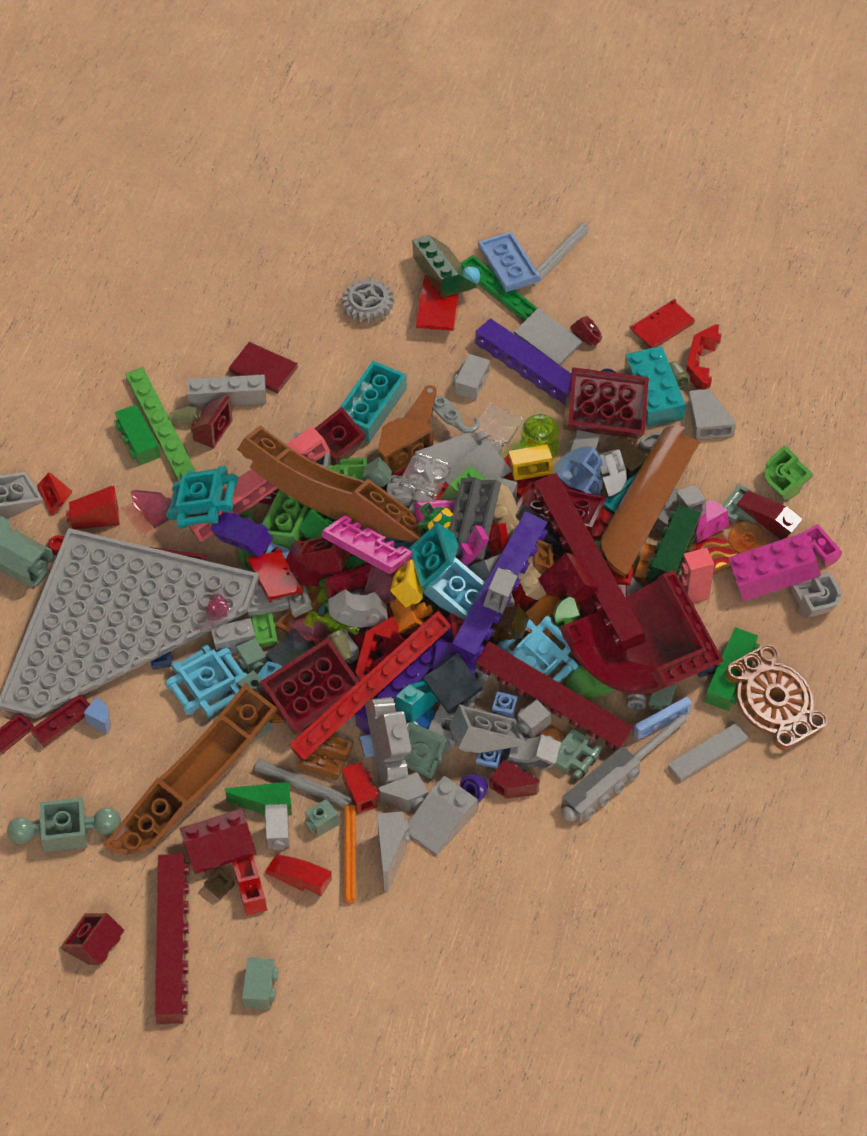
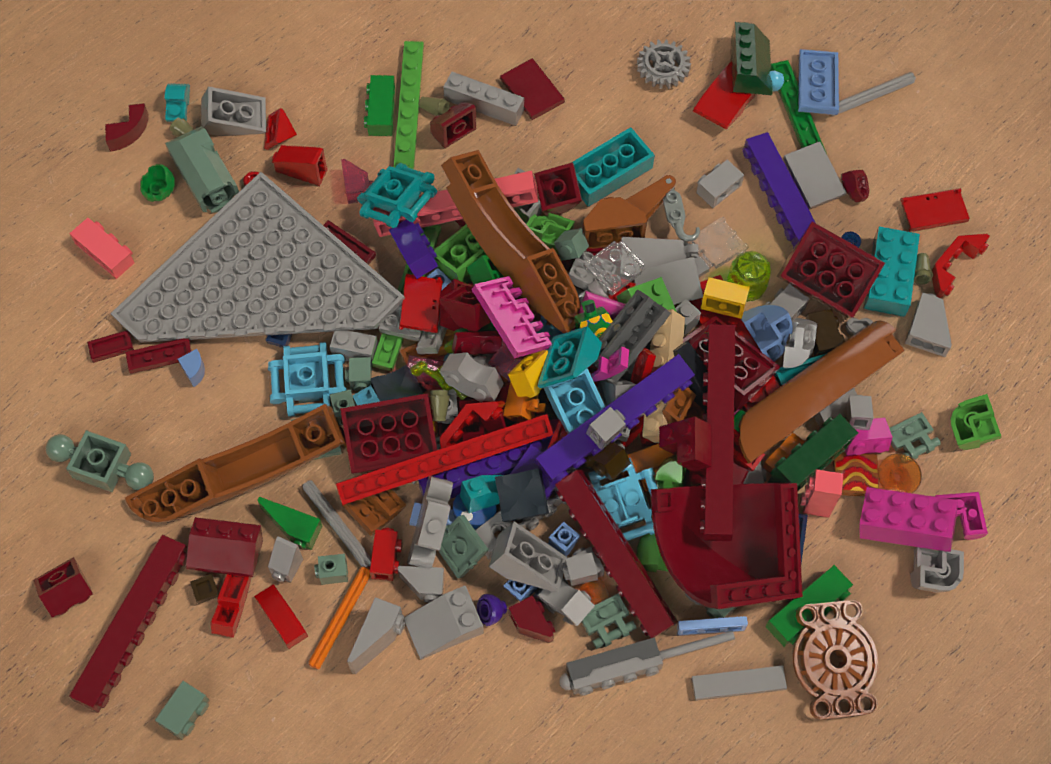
camera: 25 degrees right, 10 degrees up
(217, 607) = (345, 313): clear pink cone -> none
(770, 514) = (934, 459): dark red slope -> none

